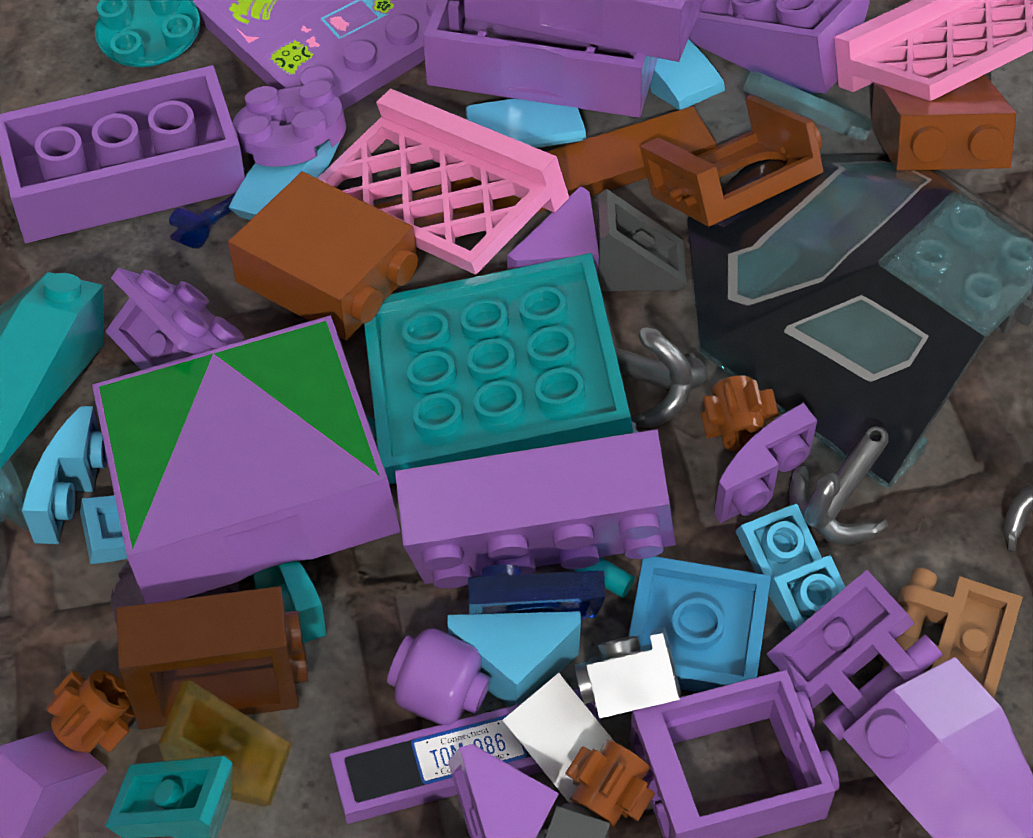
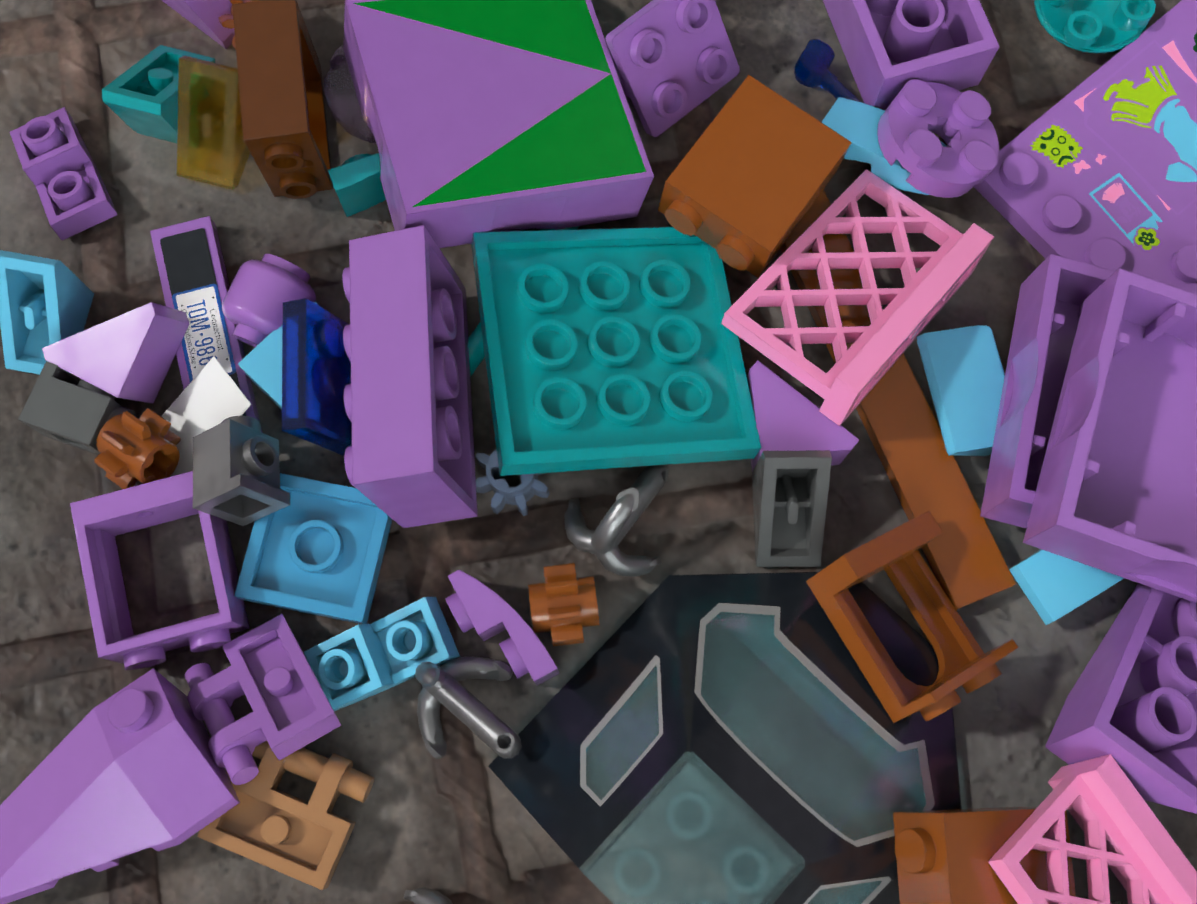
camera: 90 degrees right, 20 degrees up
(808, 105) = (1004, 716): clear light blue tile -> none

